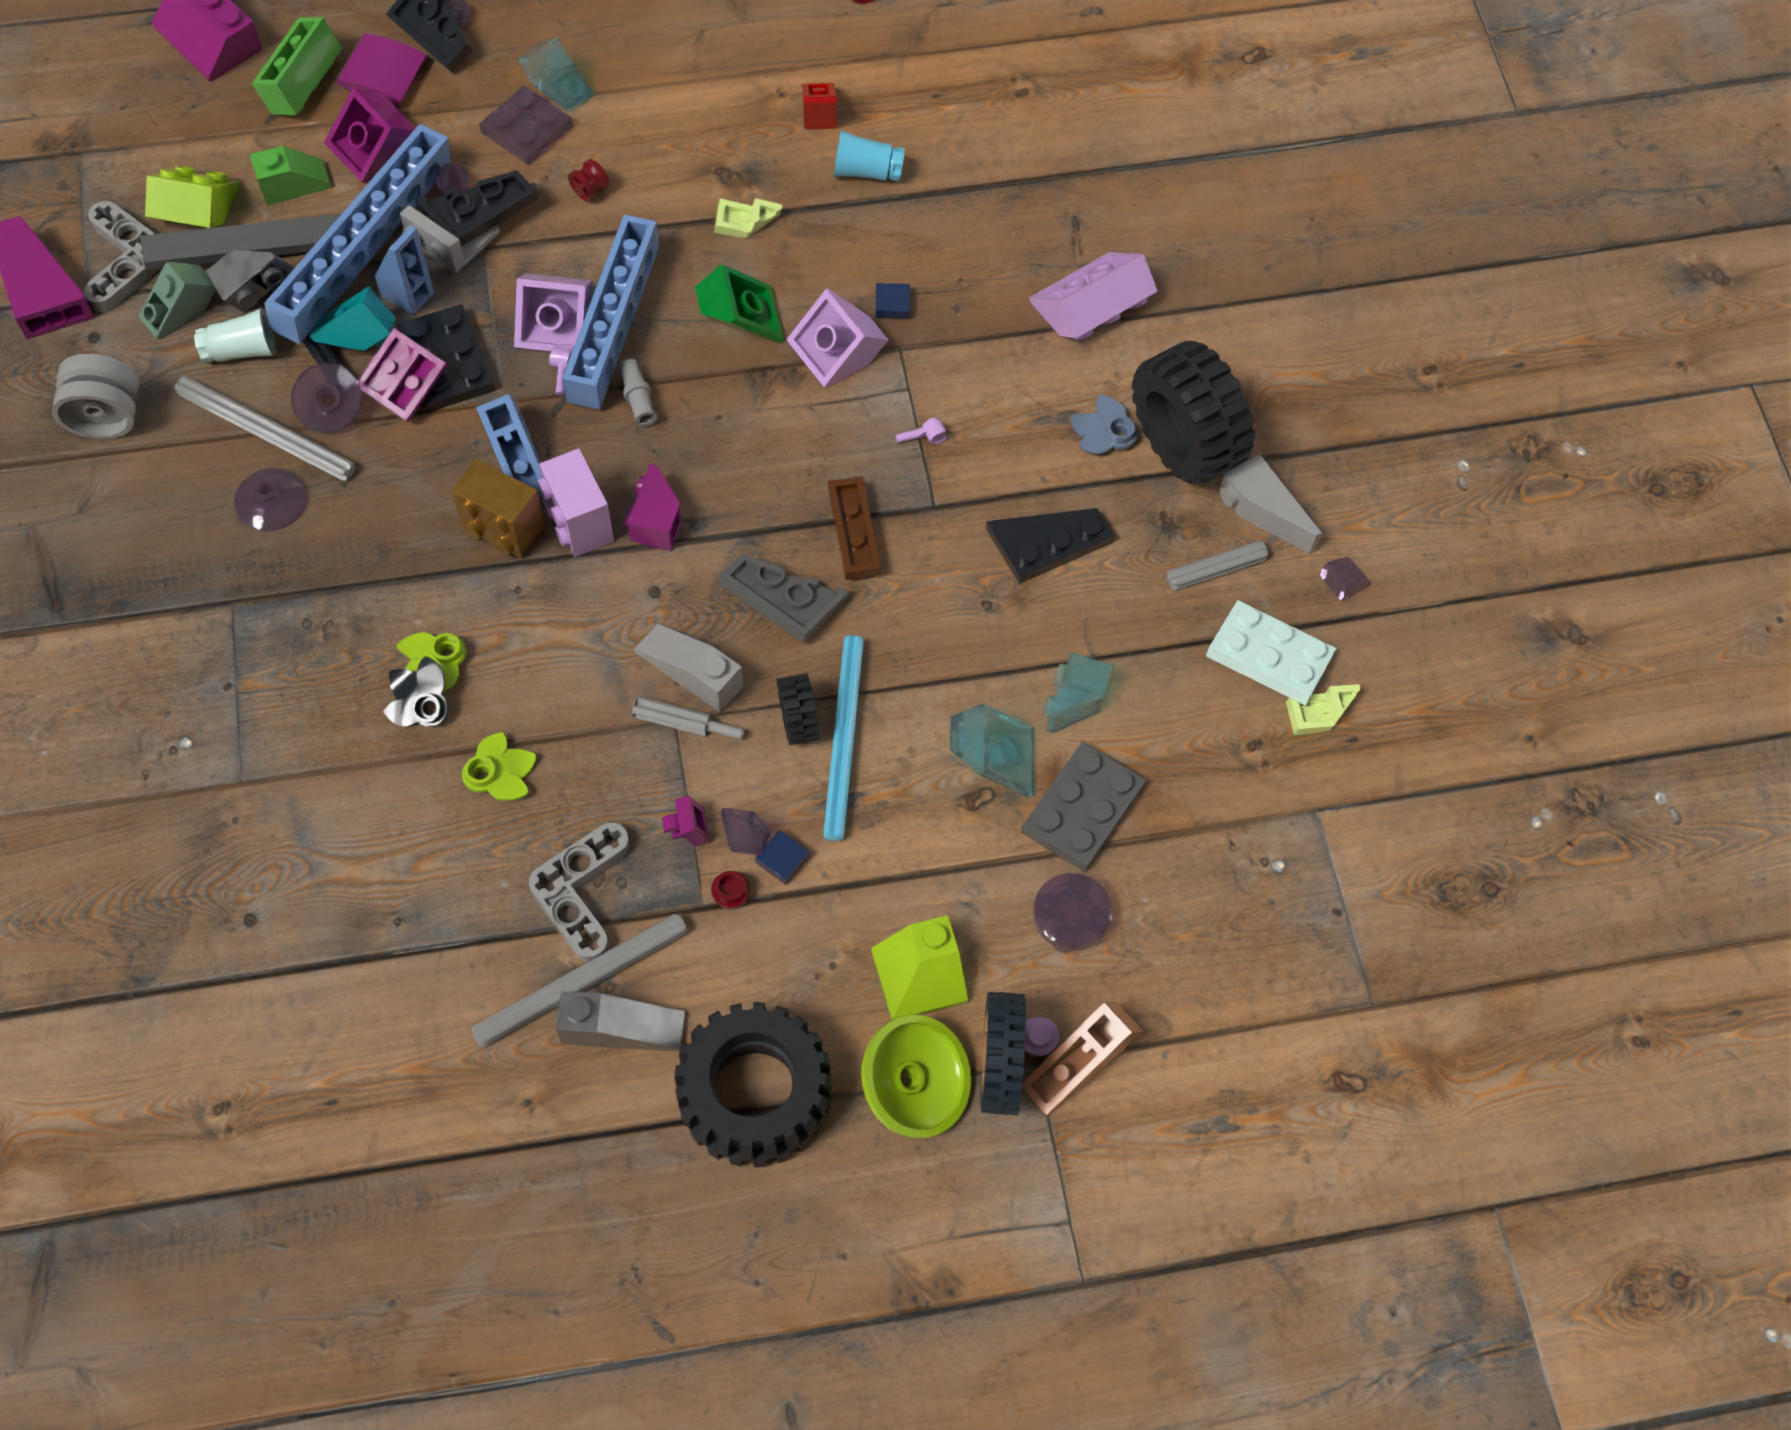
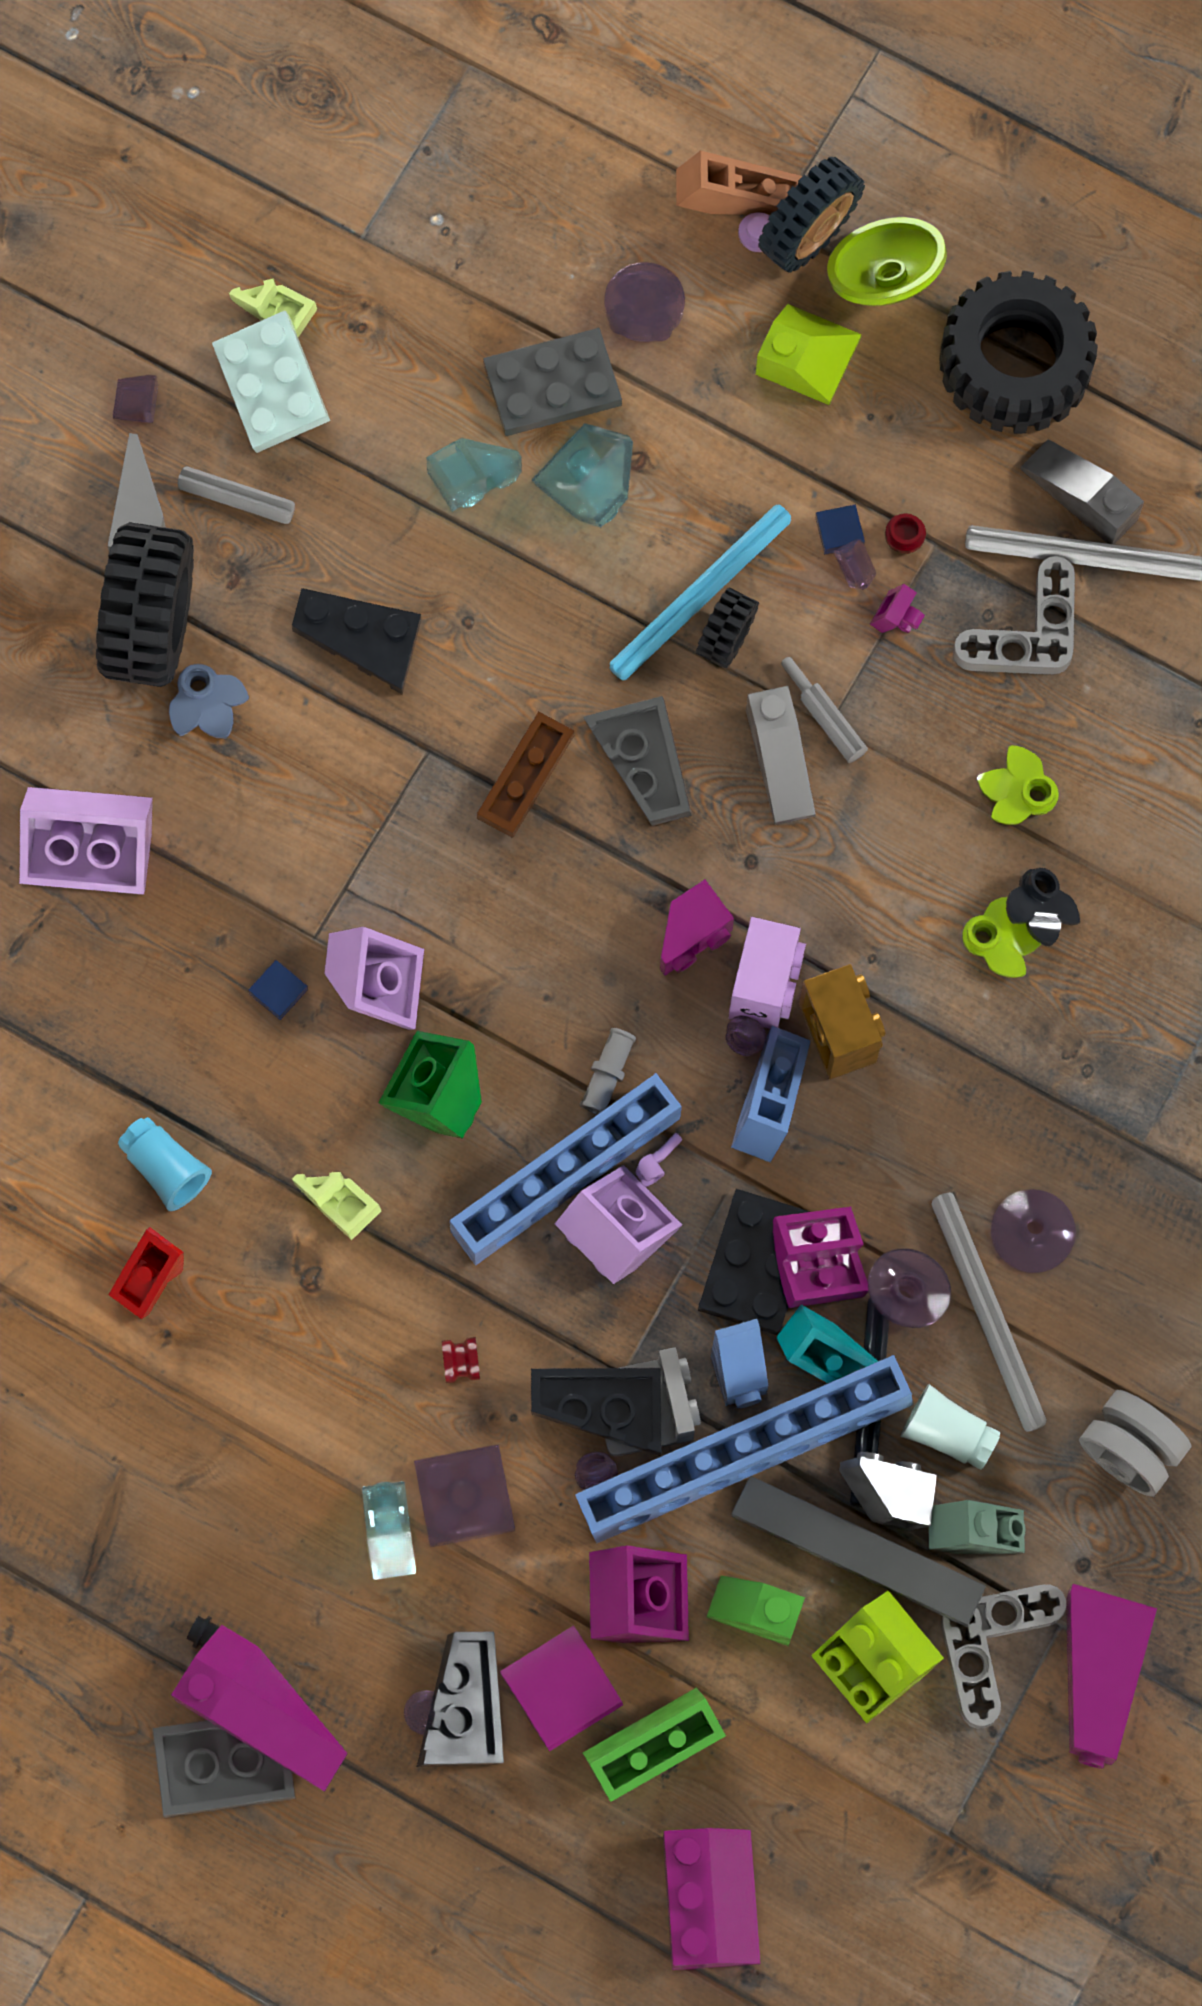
camera: 140 degrees left, 10 degrees up
(931, 428) = (365, 821): lavender hand -> none

